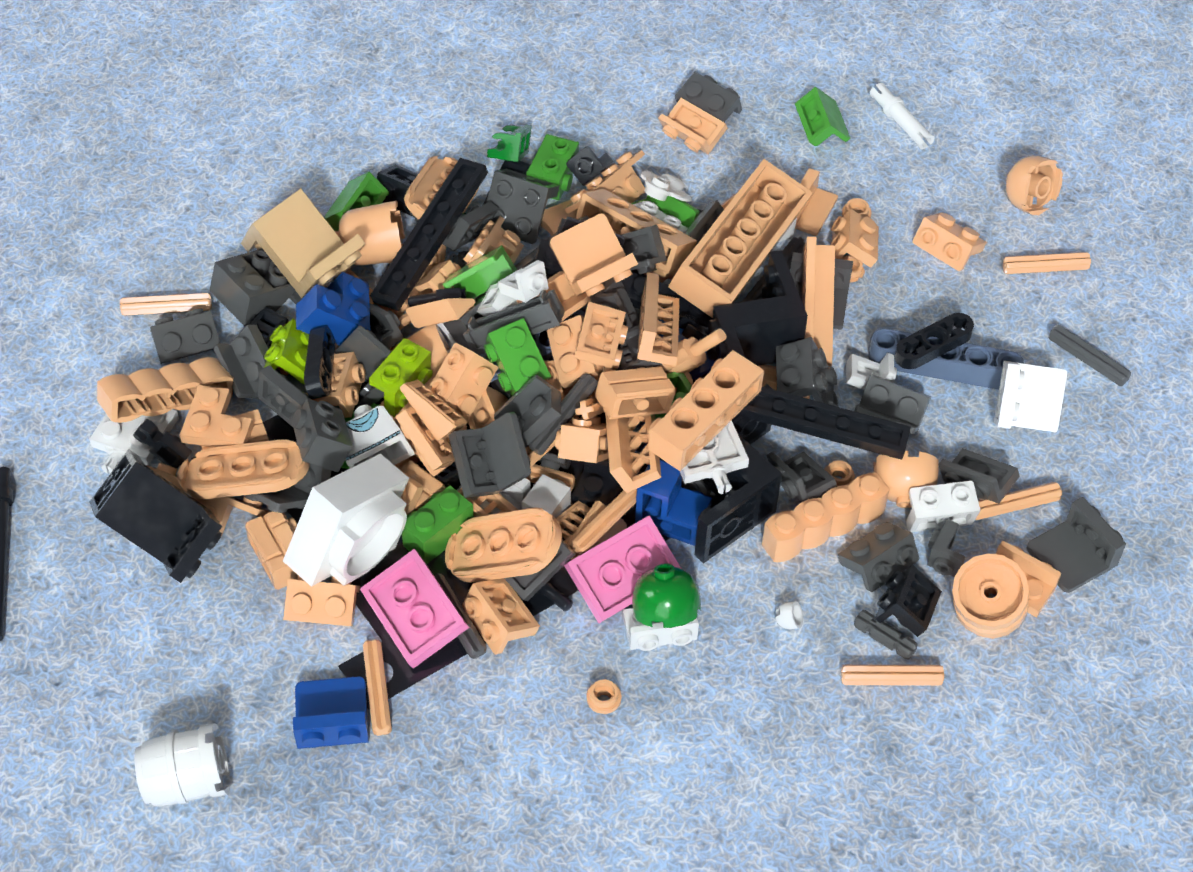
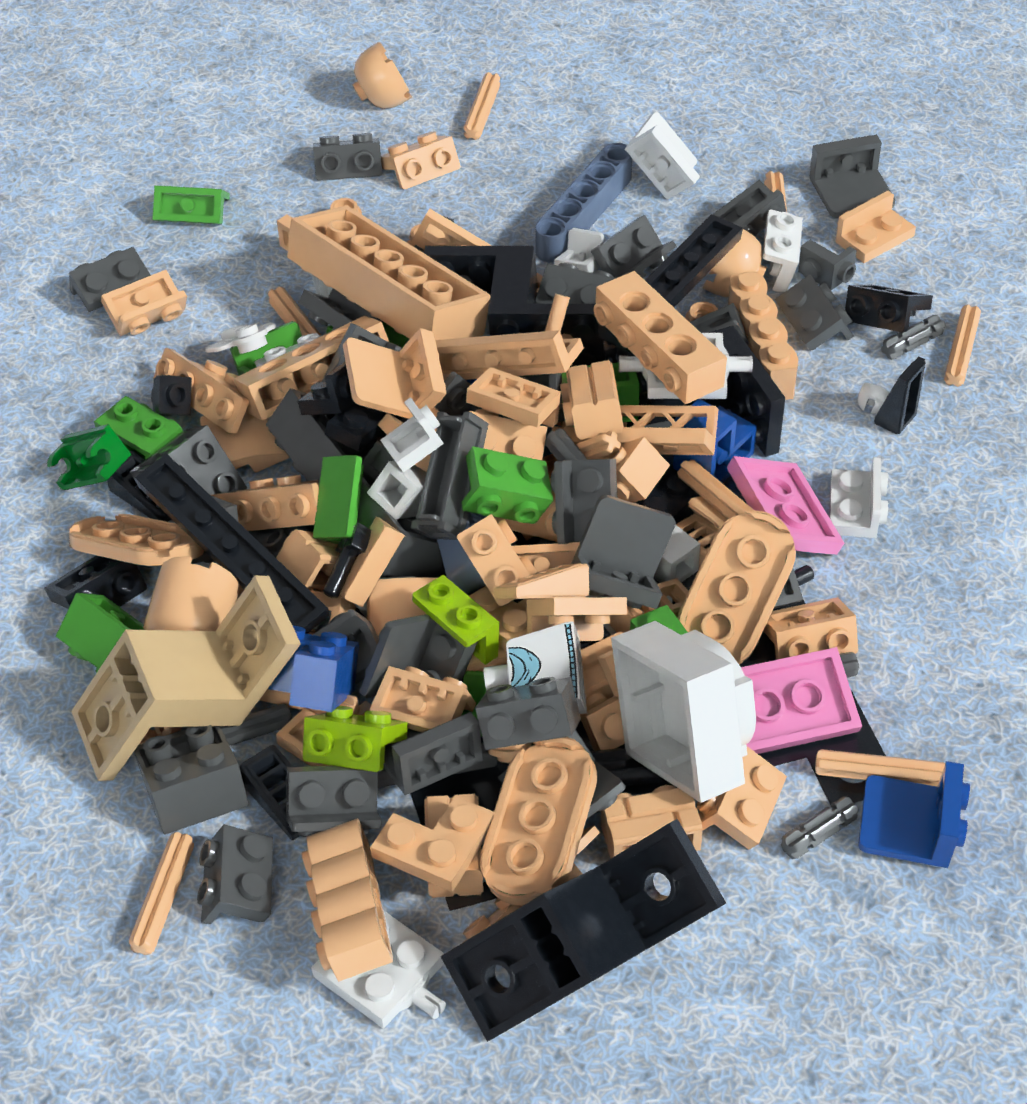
camera: 70 degrees left, 5 degrees down
(163, 446) = (443, 920): black plate -> none
(182, 767) = (975, 975): white piece -> none
(311, 657) = (819, 827): none -> dark grey axle
(319, 362) = (402, 696): black beam -> none
(607, 688) = (940, 567): light nougat plate -> none
(666, 596) = (846, 472): green cylinder -> none
(781, 630) = (903, 399): none -> black slope
(856, 237) = (394, 218): light nougat bracket -> none
(895, 108) = (222, 145): white pin -> none
(927, 192) = (347, 158): none -> dark grey bracket
(927, 351) = (572, 200): black beam -> none
(986, 576) = (905, 240): light nougat wheel -> none
(1089, 355) = (613, 112): dark grey axle -> none

